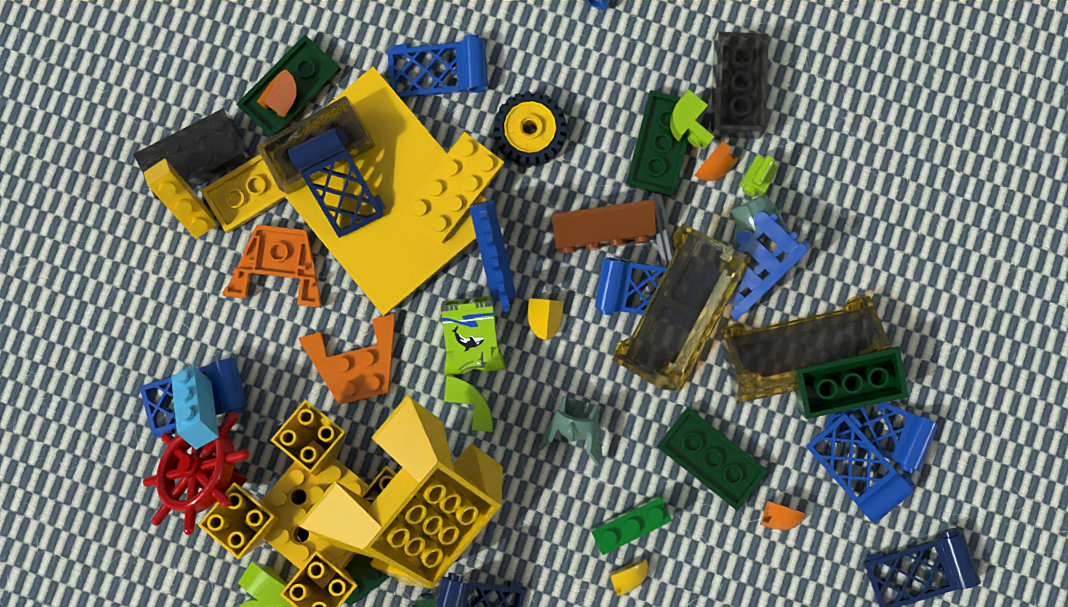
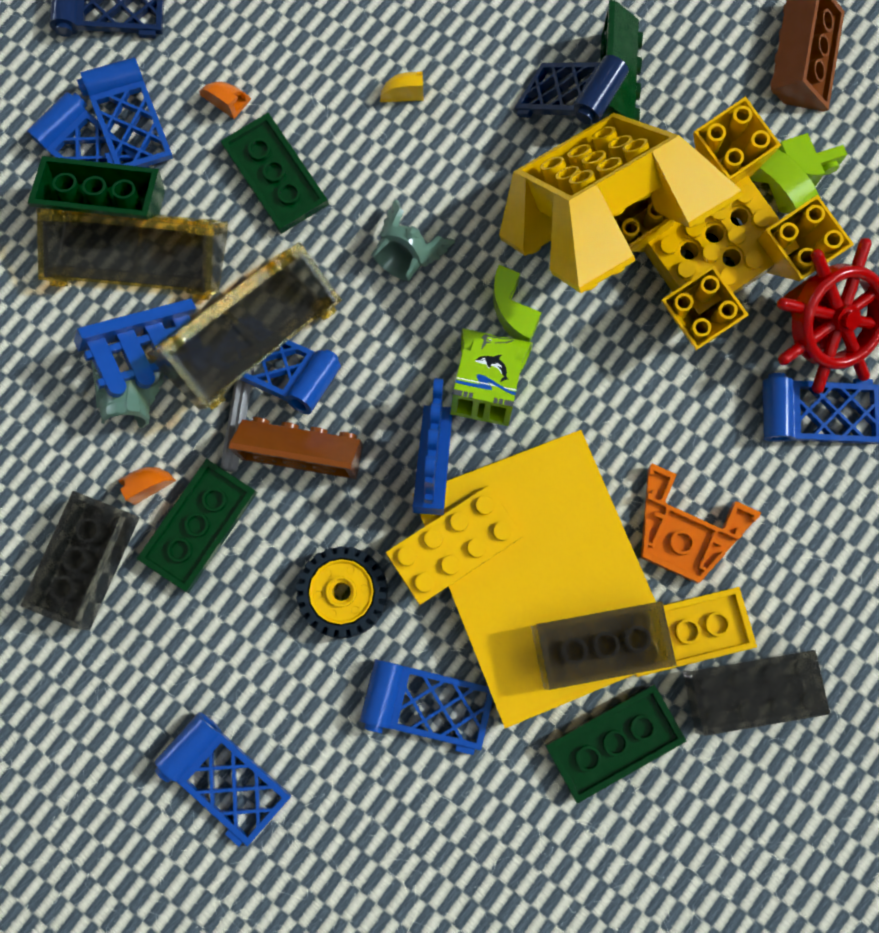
camera: 160 degrees left, 5 degrees down
(179, 198) = (786, 636): yellow brick -> none
(194, 407) = (826, 382): medium azure brick -> none
(279, 94) = (629, 732): orange brick -> none
(325, 151) = (599, 622): dark blue piece -> none
(358, 372) = (628, 380): orange wing -> none
(545, 317) = (400, 373): yellow brick -> none
(630, 524) = (383, 132): green brick -> none
(684, 121) = (158, 539): lime brick -> none
(758, 176) = (103, 450): lime brick -> none

